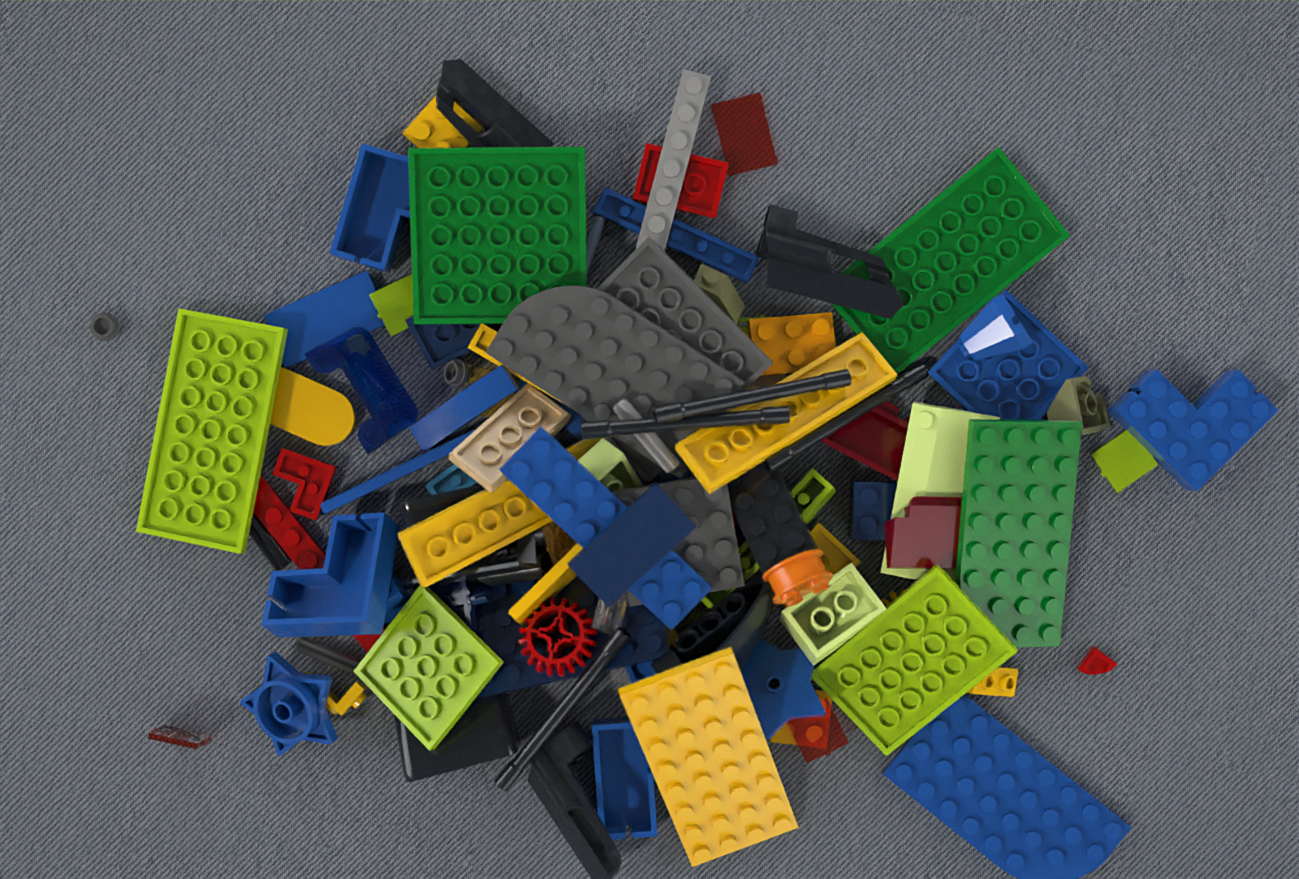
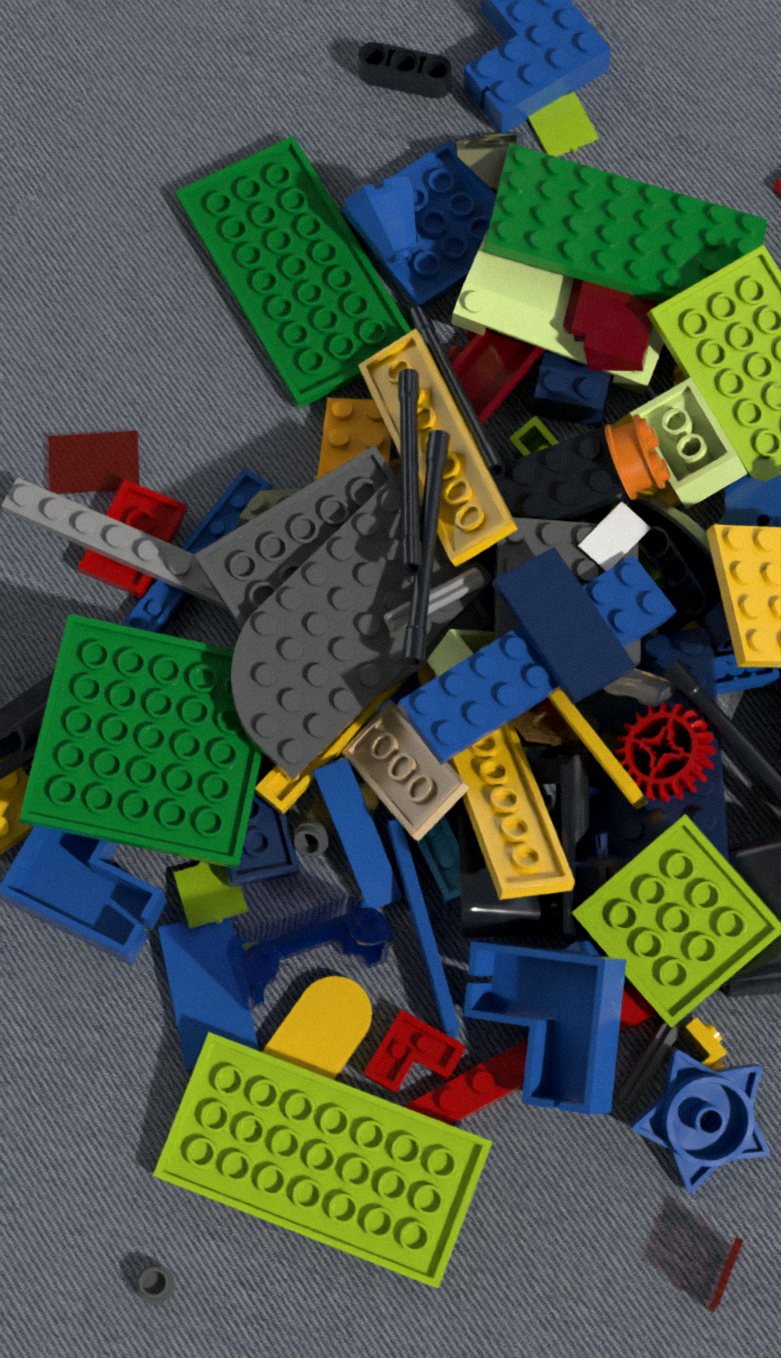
camera: 75 degrees left, 20 degrees down
(267, 545) = (492, 1117): black axle -> none
(728, 570) = (614, 536): none -> white sticker
(802, 266) = (264, 407): black panel -> none
(1160, 307) = (416, 81): none -> black beam

